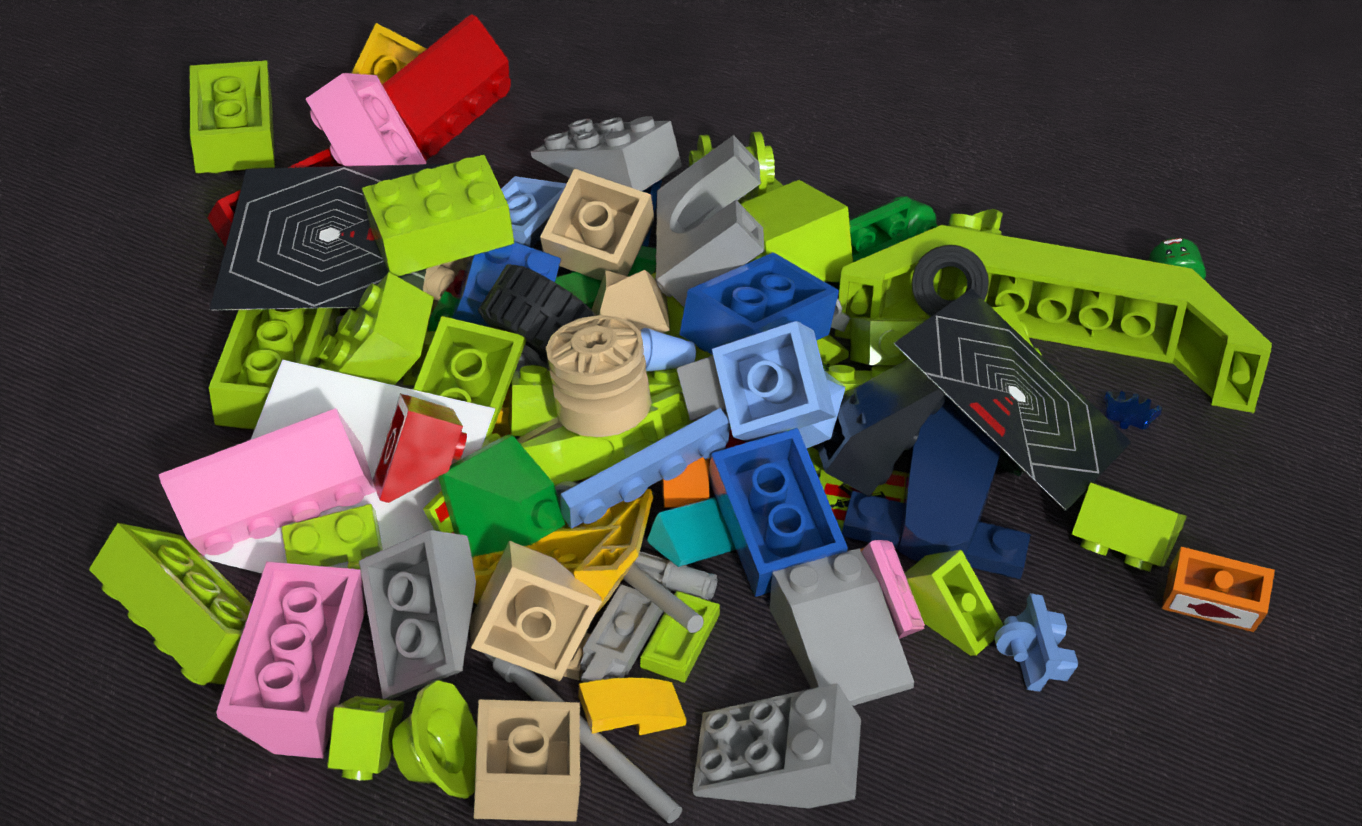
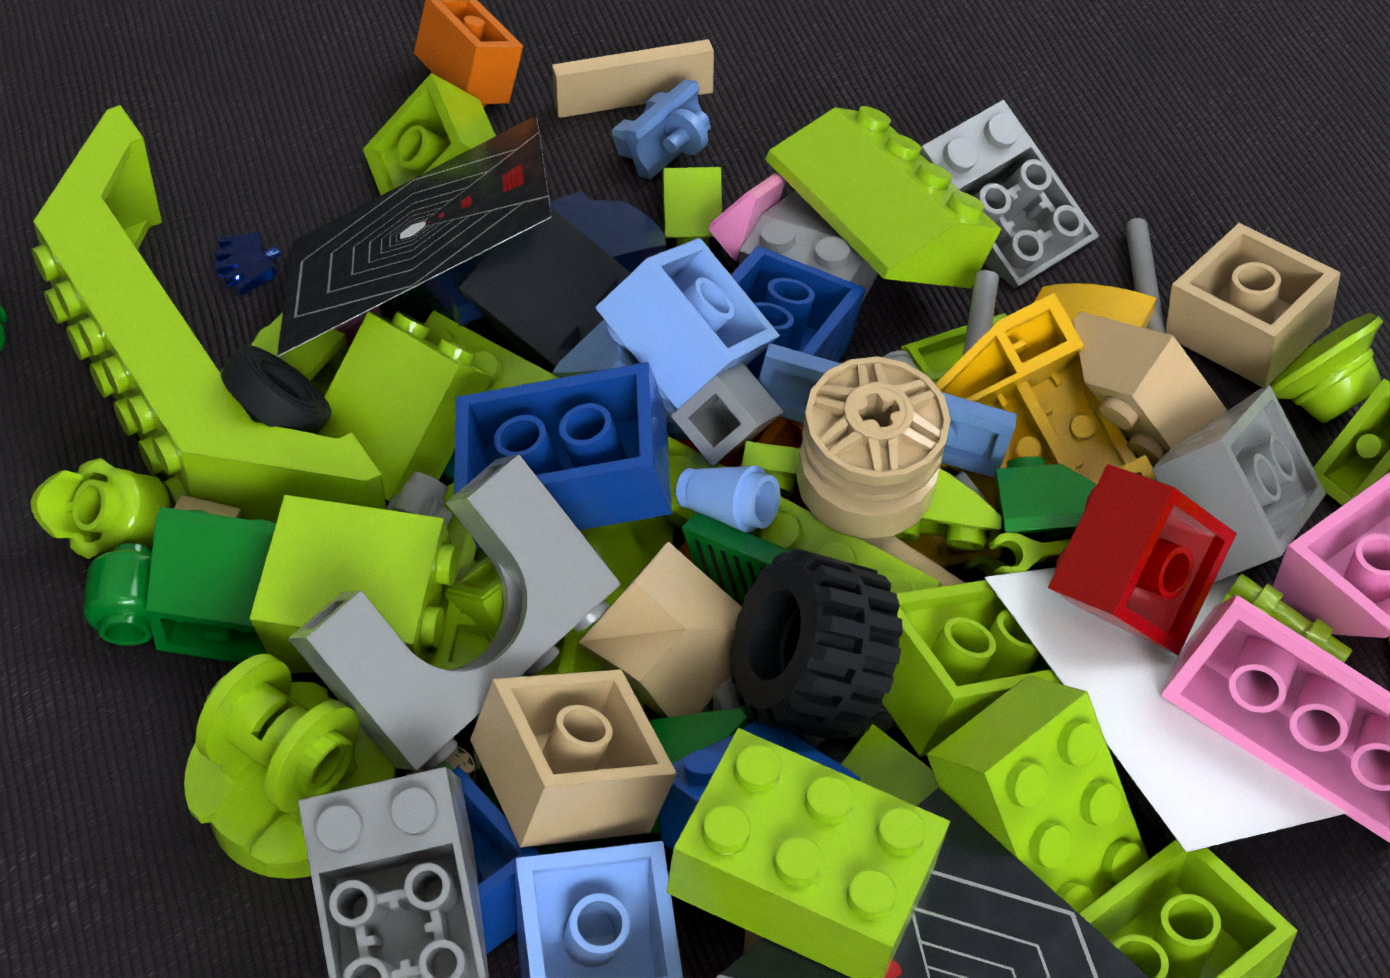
camera: 135 degrees left, 5 degrees up
(822, 641) = (887, 198): none -> lime slope
(1108, 666) = (629, 77): none -> tan tile

